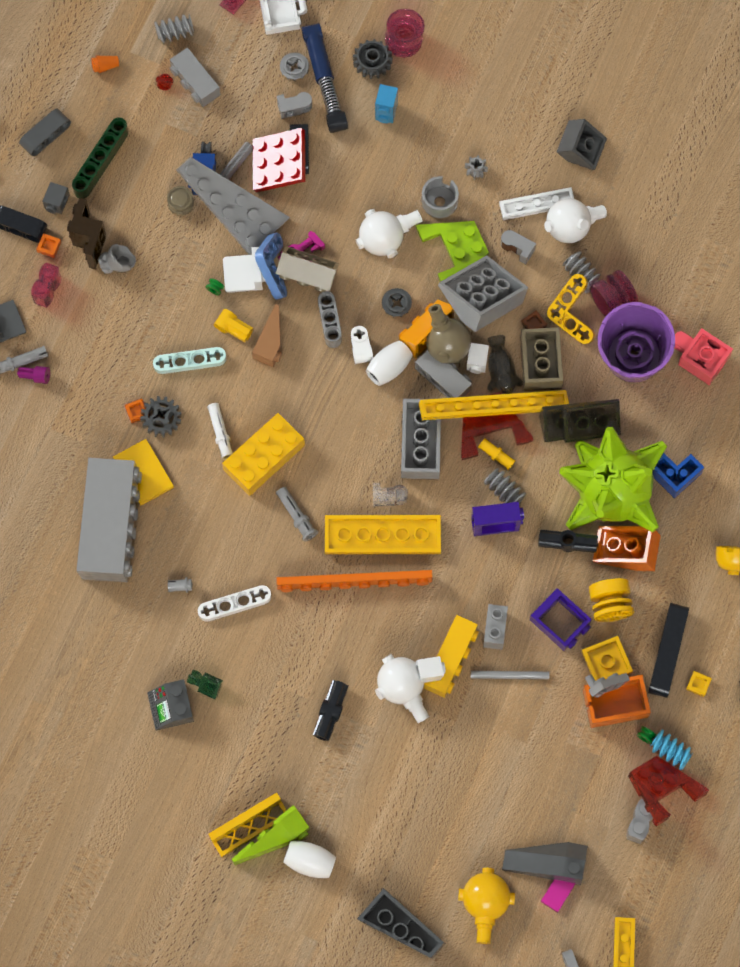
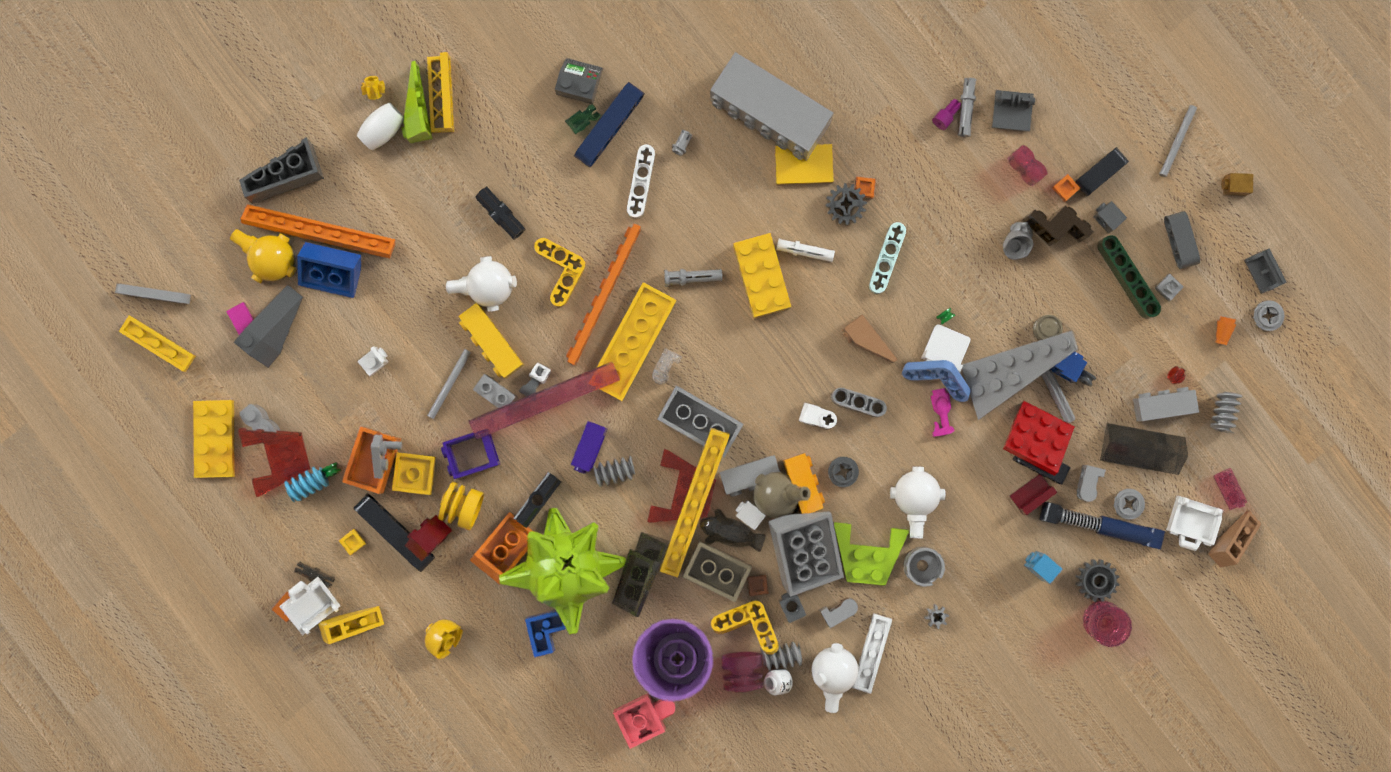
camera: 115 degrees right, 15 degrees up
(36, 56) = (1265, 270): none -> dark grey hinge
(74, 28) = (1272, 308): none -> light grey gear
(91, 124) = (1169, 287): none -> light grey tile
(197, 656) = (609, 124): none -> dark blue beam
(229, 323) = (902, 311): yellow piece -> none
(241, 76) = (1144, 449): none -> clear smoke slope
(276, 887) = (372, 87): none -> yellow gear
(307, 269) = (915, 405): brick -> none
(329, 143) = (1032, 494): none -> dark red panel
(349, 624) = (568, 270): none -> yellow beam
(389, 363) = (787, 432): white piece -> none
(430, 669) = (481, 312): white brick -> none
(437, 866) = (318, 231): none -> orange plate
(458, 598) = (538, 376): none -> leg
(467, 836) = (328, 269): none -> blue slope
(477, 577) = (544, 400): none -> clear pink tile
(496, 453) = (652, 482): yellow pin -> none
(527, 752) = (373, 360): none -> white bracket
(540, 278) = (793, 615): none -> dark grey brick
(581, 144) = (907, 727): dark grey slope -> none
(605, 262) = (778, 682): none -> white head
(655, 613) = (428, 537): none -> dark red brick
(680, 859) = (213, 438): none -> yellow plate

